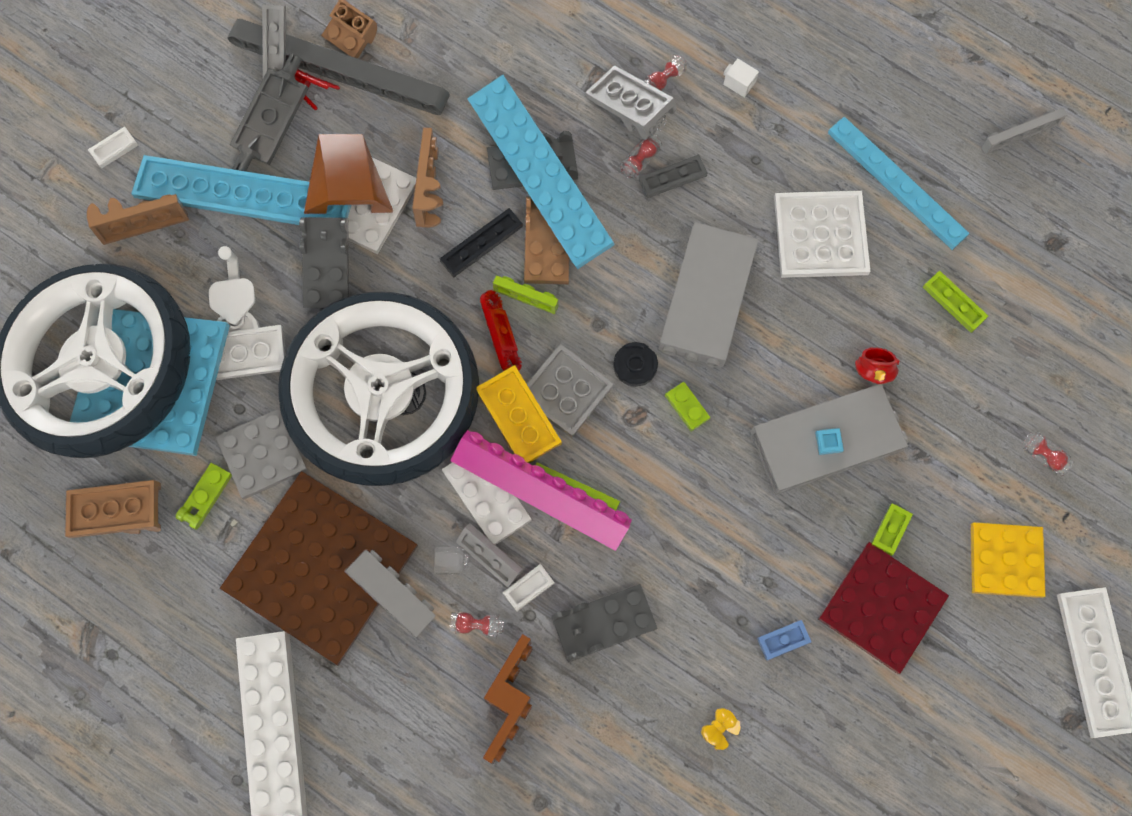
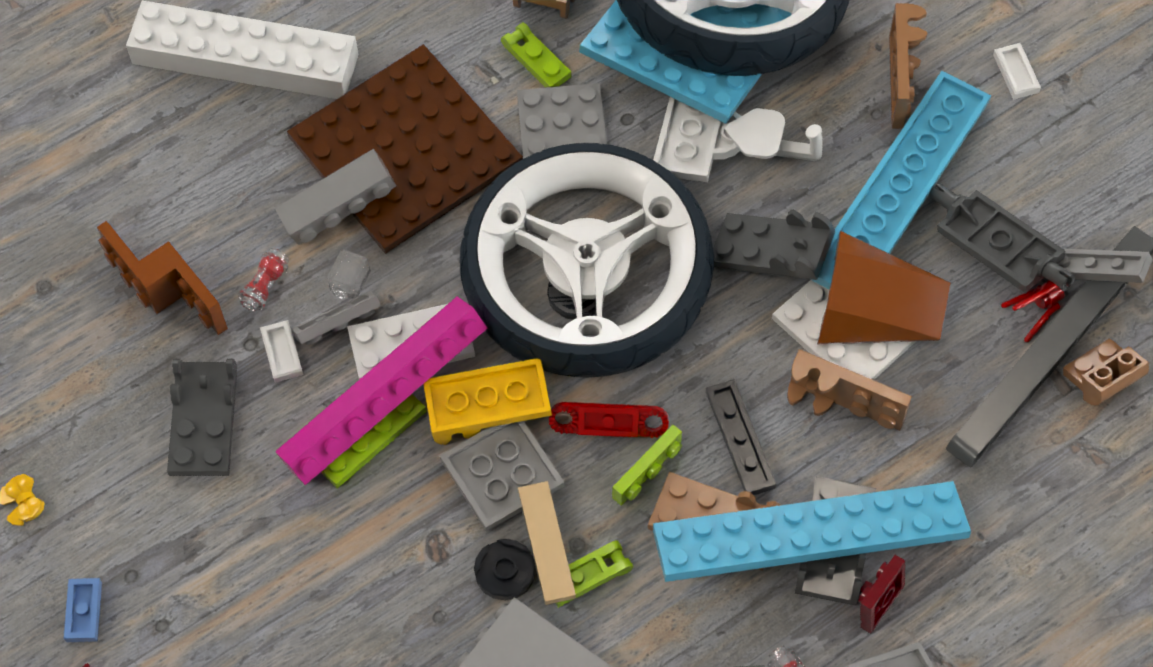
camera: 115 degrees right, 10 degrees down
(565, 117) = (878, 597): none -> dark red hinge
(610, 337) = (546, 543): none -> tan tile
(619, 308) = (592, 570): none -> lime plate
(687, 406) = (422, 611): lime plate -> none

